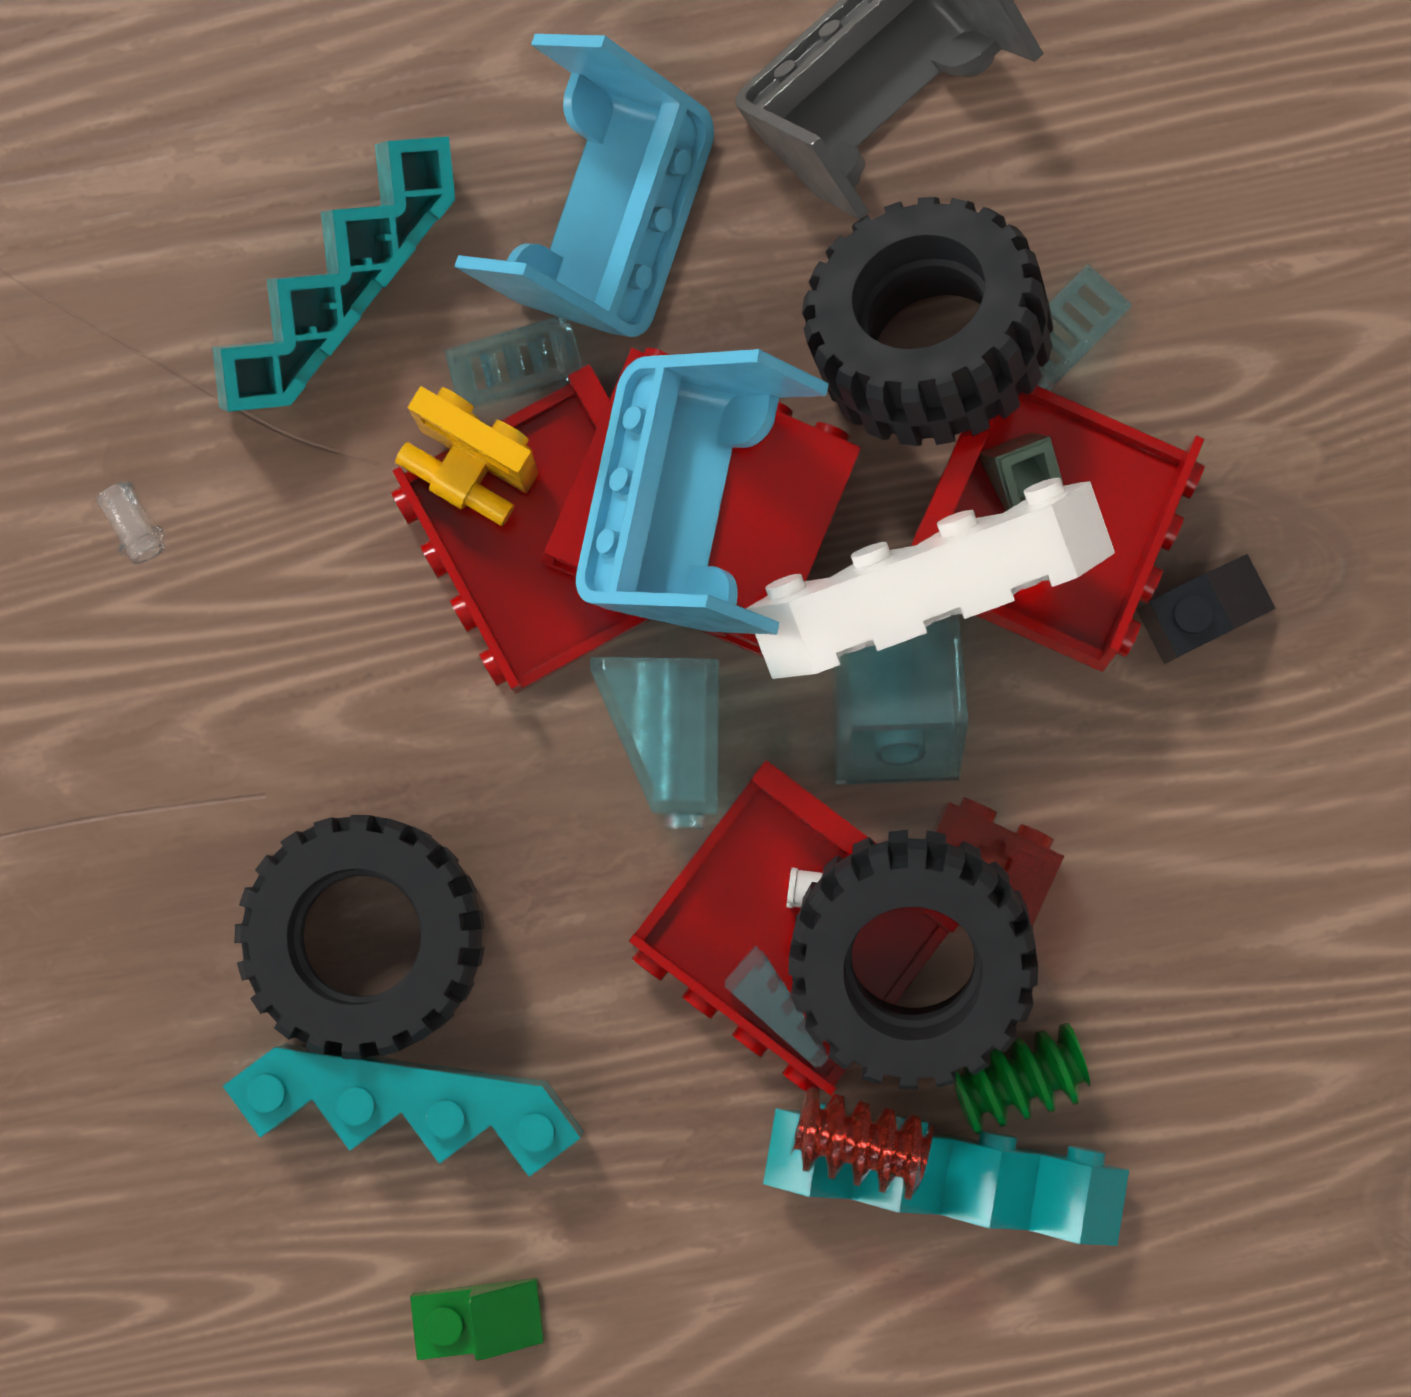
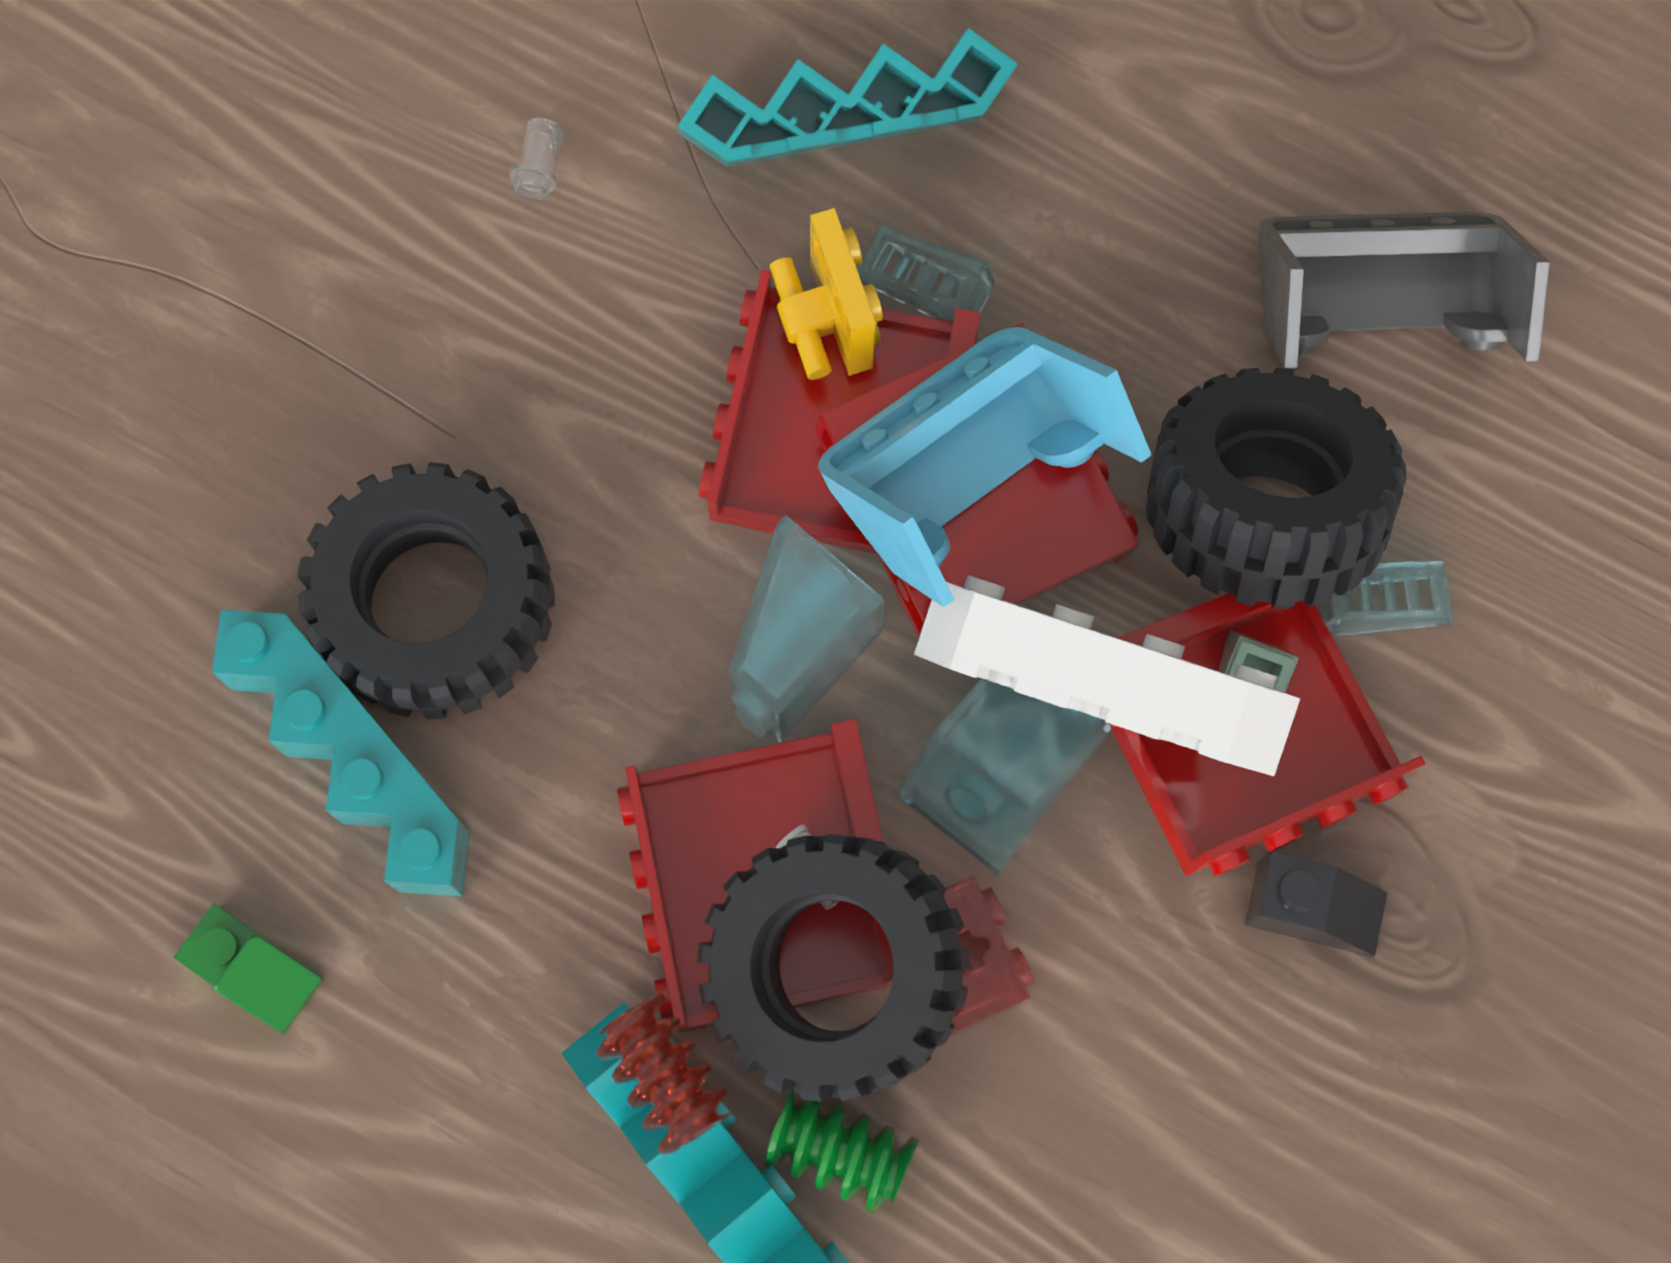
camera: 40 degrees right, 10 degrees down
(626, 196) = (1118, 227): medium azure windscreen -> none
(765, 994) = (694, 888): clear light blue slope -> none

